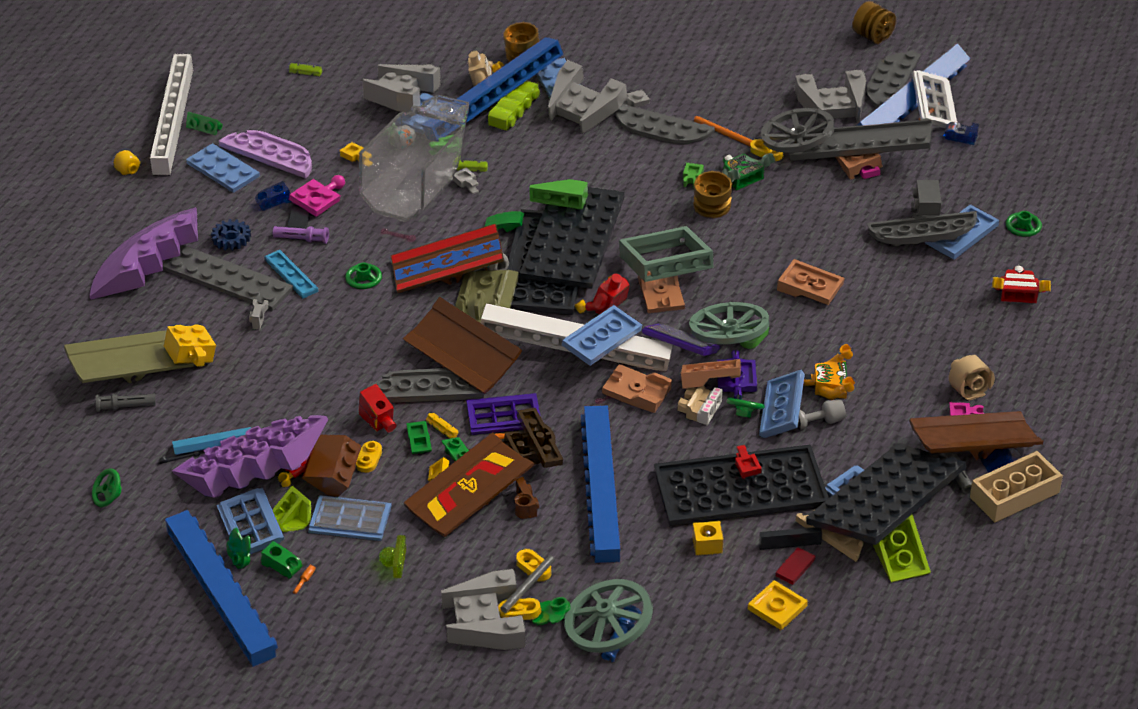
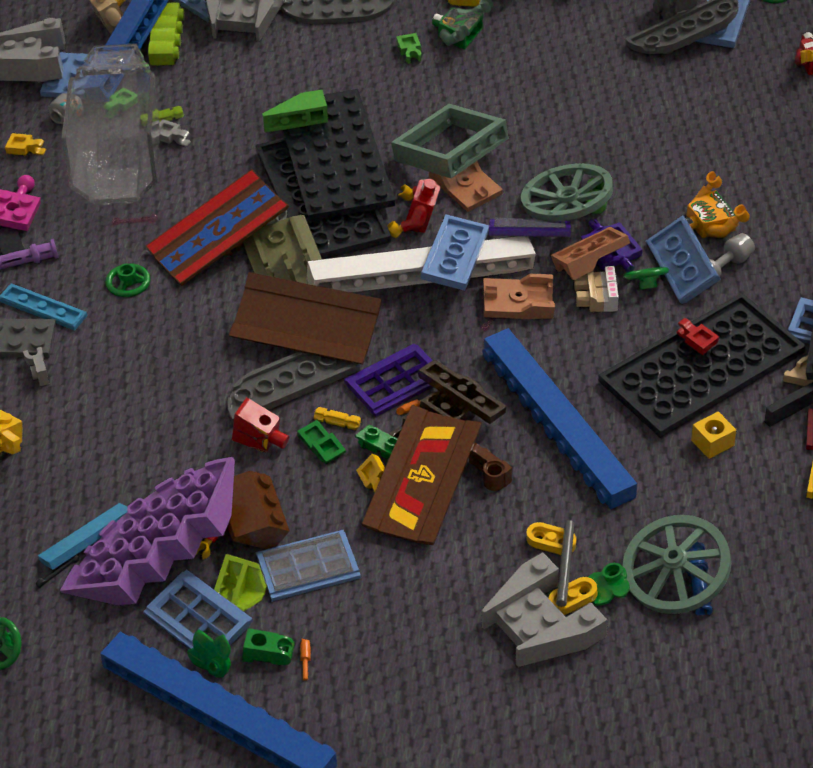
camera: 25 degrees left, 5 degrees up
(369, 456) = (282, 483): yellow plate -> none
(395, 556) = (394, 590): clear neon green tile -> none
(506, 220) = (254, 159): green slope -> none
(712, 194) = (451, 60): pearl gold wheel -> none
(799, 275) = (599, 119): nougat piece -> none

